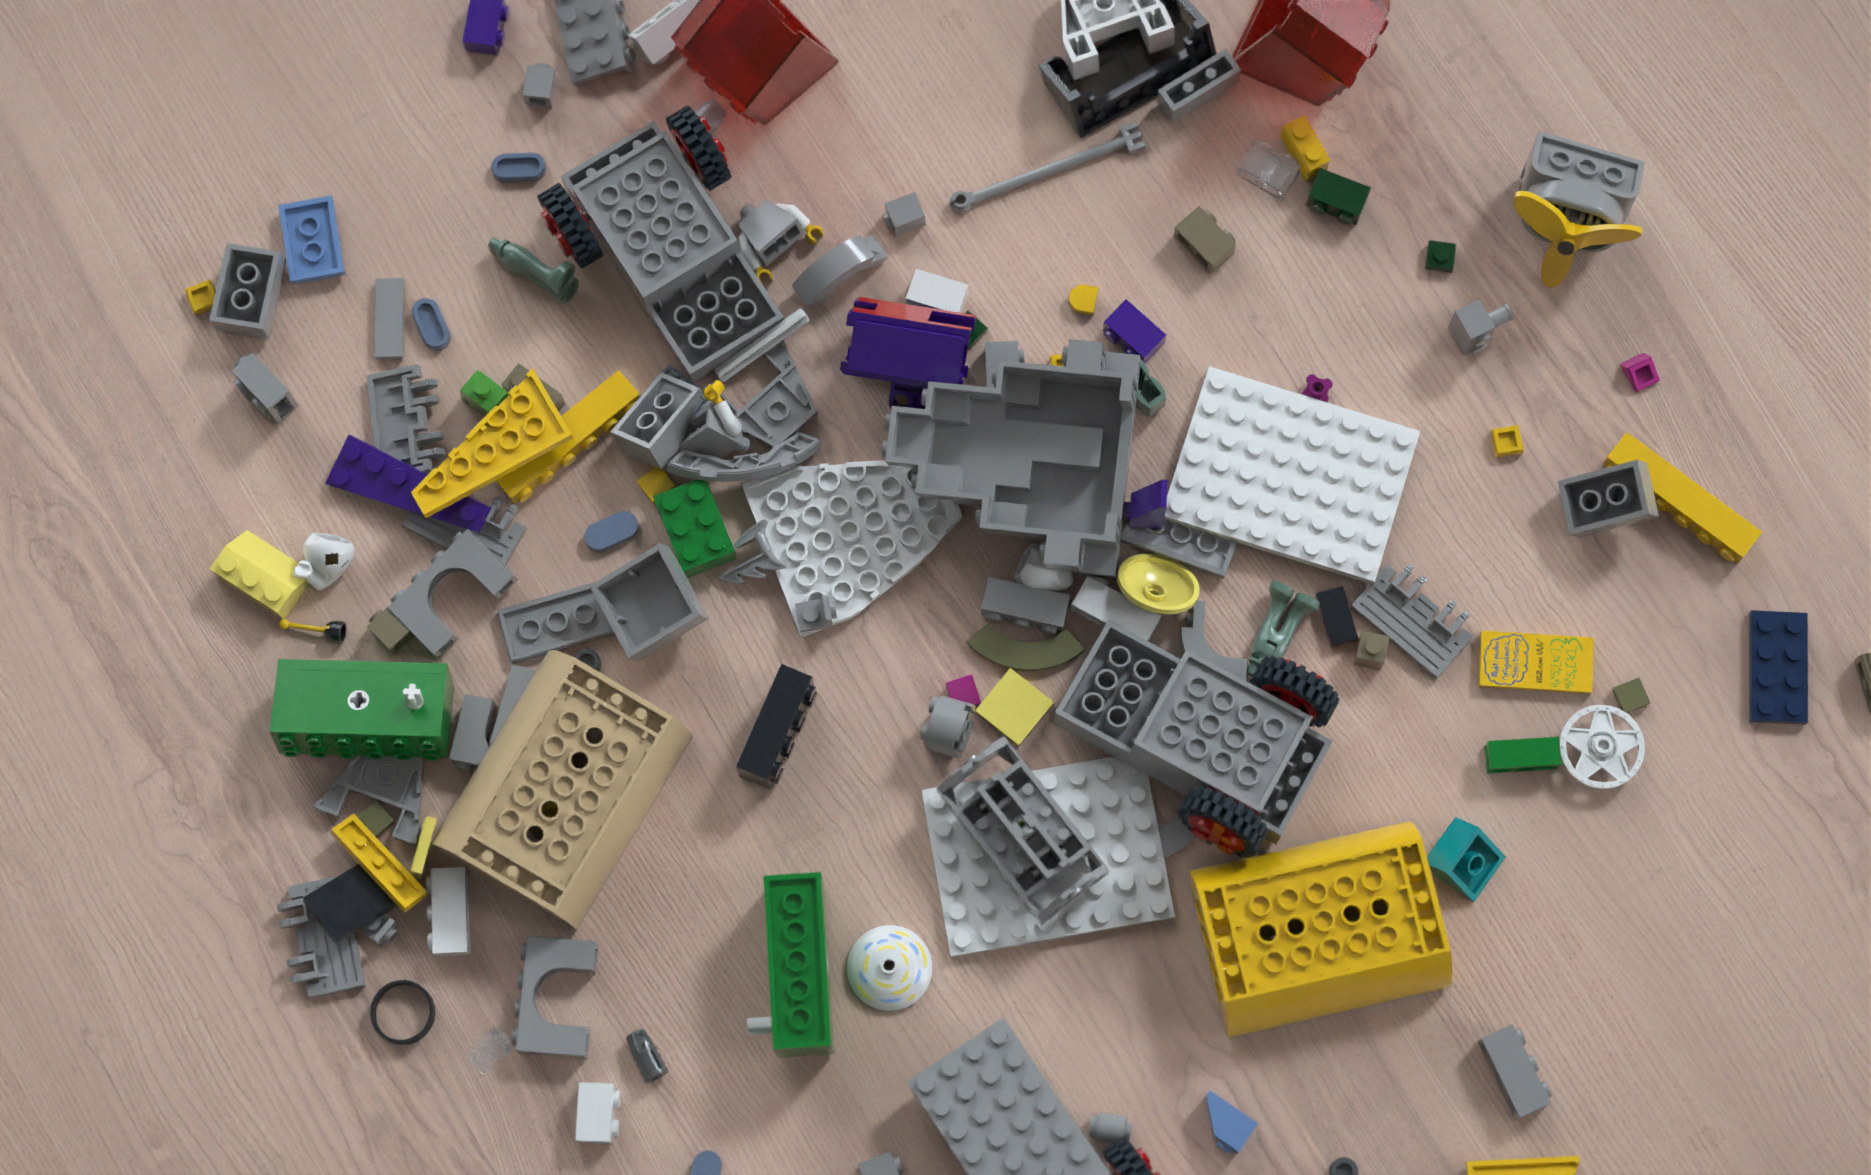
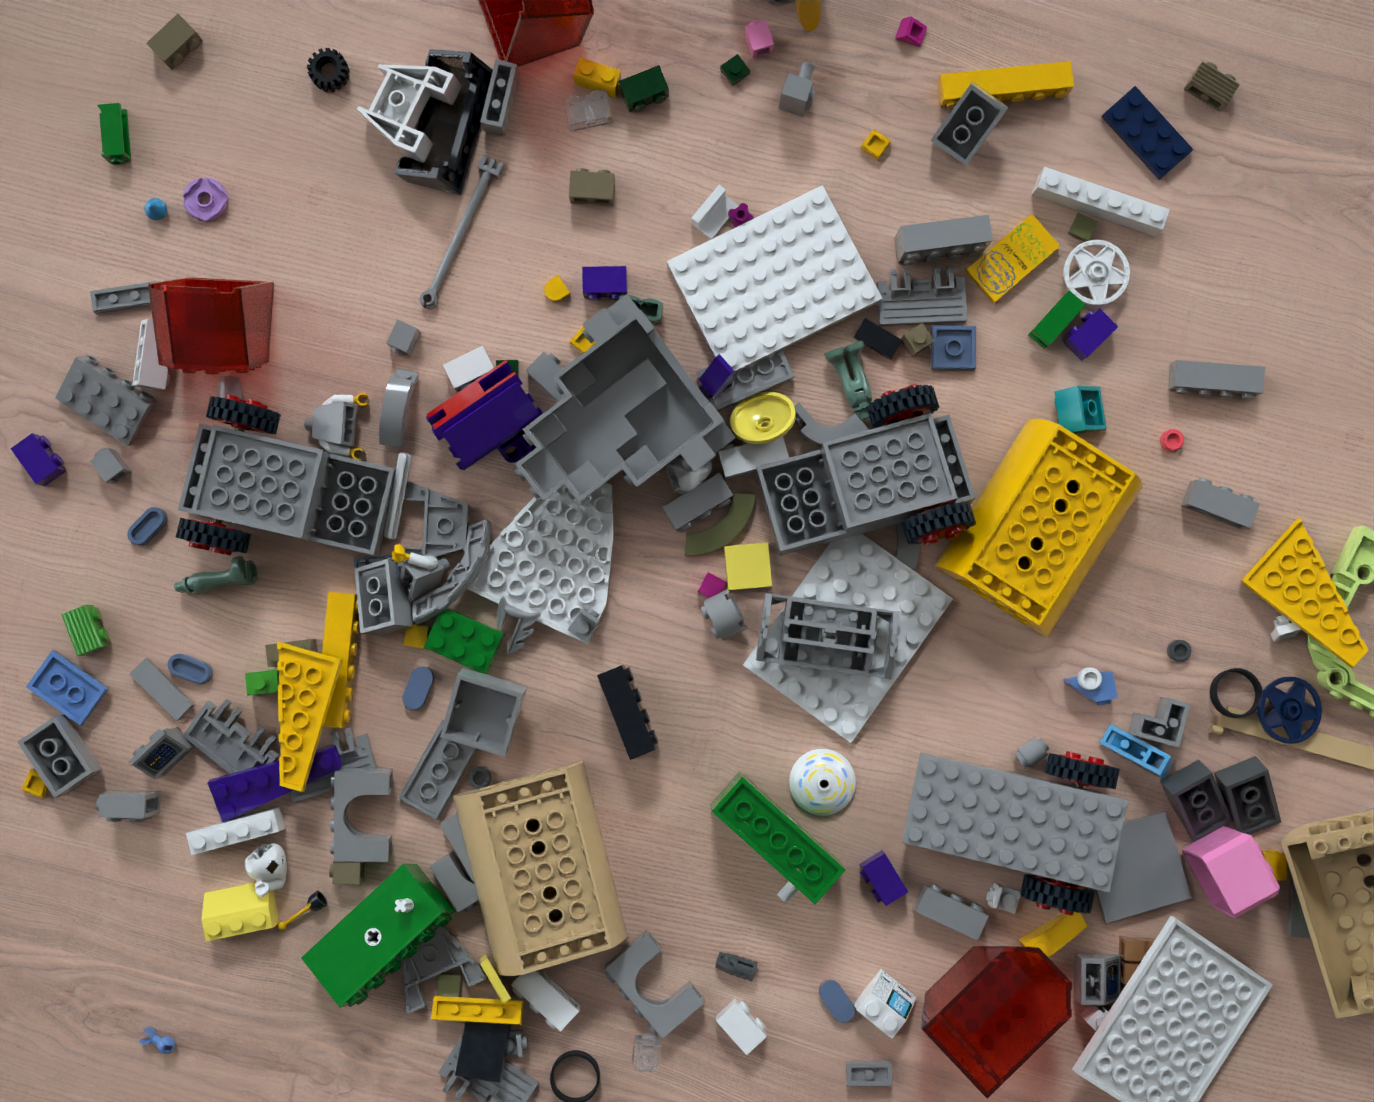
camera: 50 degrees left, 10 degrees up
(80, 625) = (163, 1043): none -> medium blue arm
(330, 500) = (235, 830): none -> white brick
(336, 371) = (161, 753): none -> slope
(377, 205) = (85, 629): none -> bright green brick
(858, 1107) = (883, 877): none -> dark purple brick
(1229, 1106) = (1089, 678): none -> white tile
(1294, 363) = (713, 212): none -> white panel
(1400, 691) = (953, 348): none -> sand blue tile
(1482, 580) = (943, 239): none -> light grey brick
(1488, 248) = (759, 38): none -> bright pink brick
(1527, 971) = (1172, 440): none -> coral tile
(1541, 797) = (1090, 334): none -> dark purple brick
(1624, 952) = (1216, 378): none -> light grey brick
(1668, 686) = (1100, 201): none -> white brick

